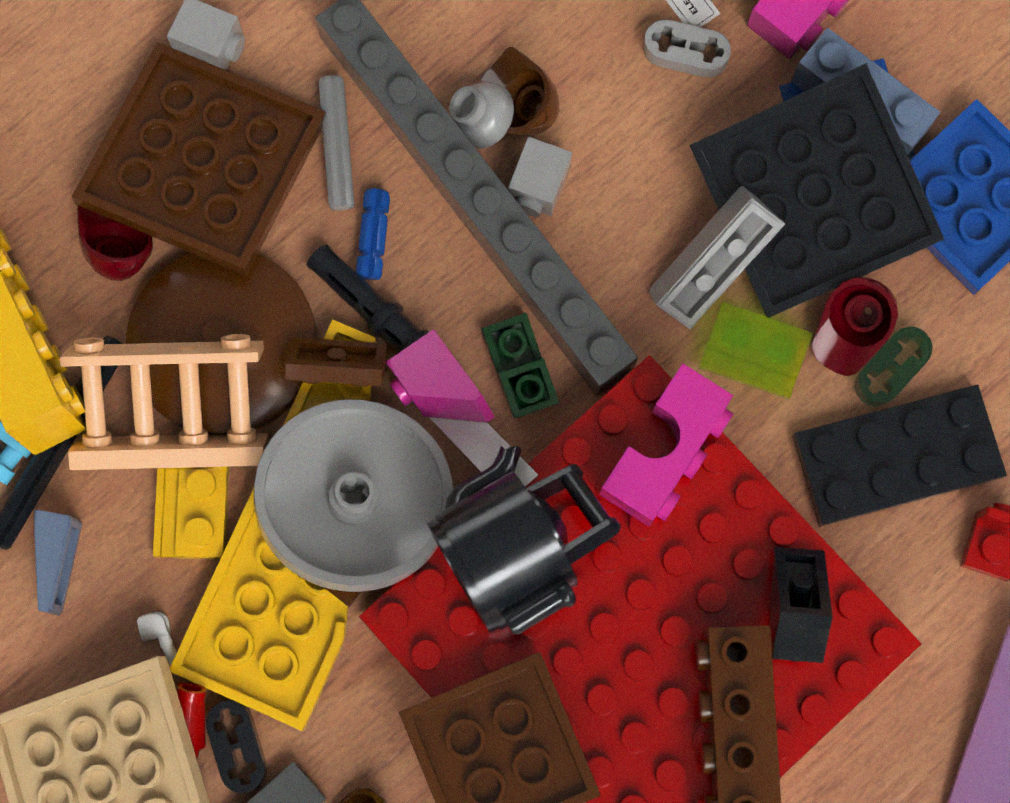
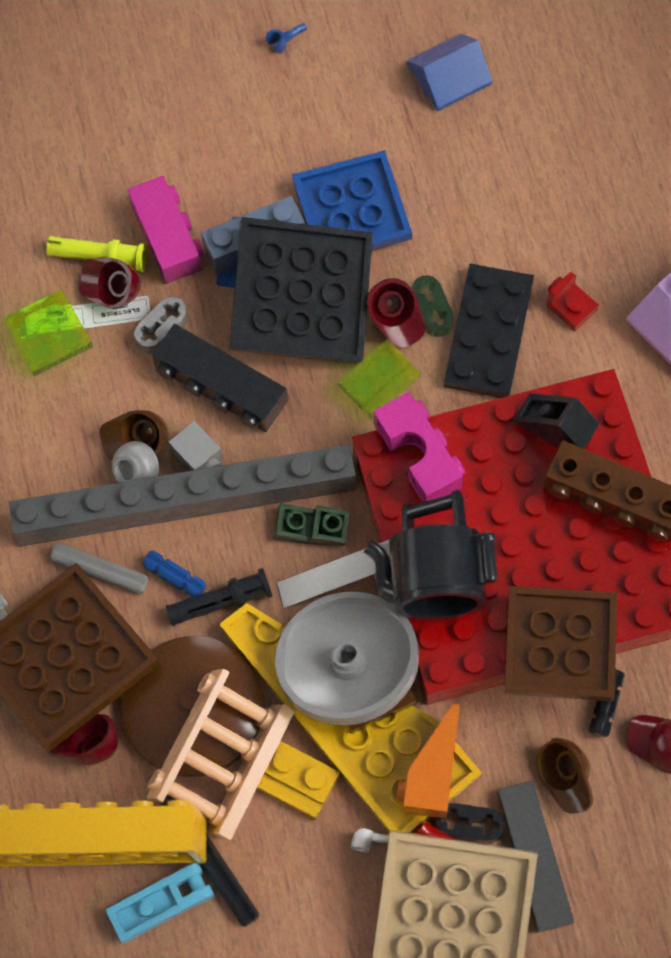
camera: 60 degrees left, 10 degrees down
(55, 553) = (274, 878): sand blue slope -> none
(258, 671) = (430, 774): none -> orange slope
(336, 361) = (251, 630): reddish brown plate -> none
(436, 382) = (299, 575): dark pink slope -> none
(651, 155) = (220, 378): none -> black brick
(715, 257) = (308, 371): light grey slope -> none

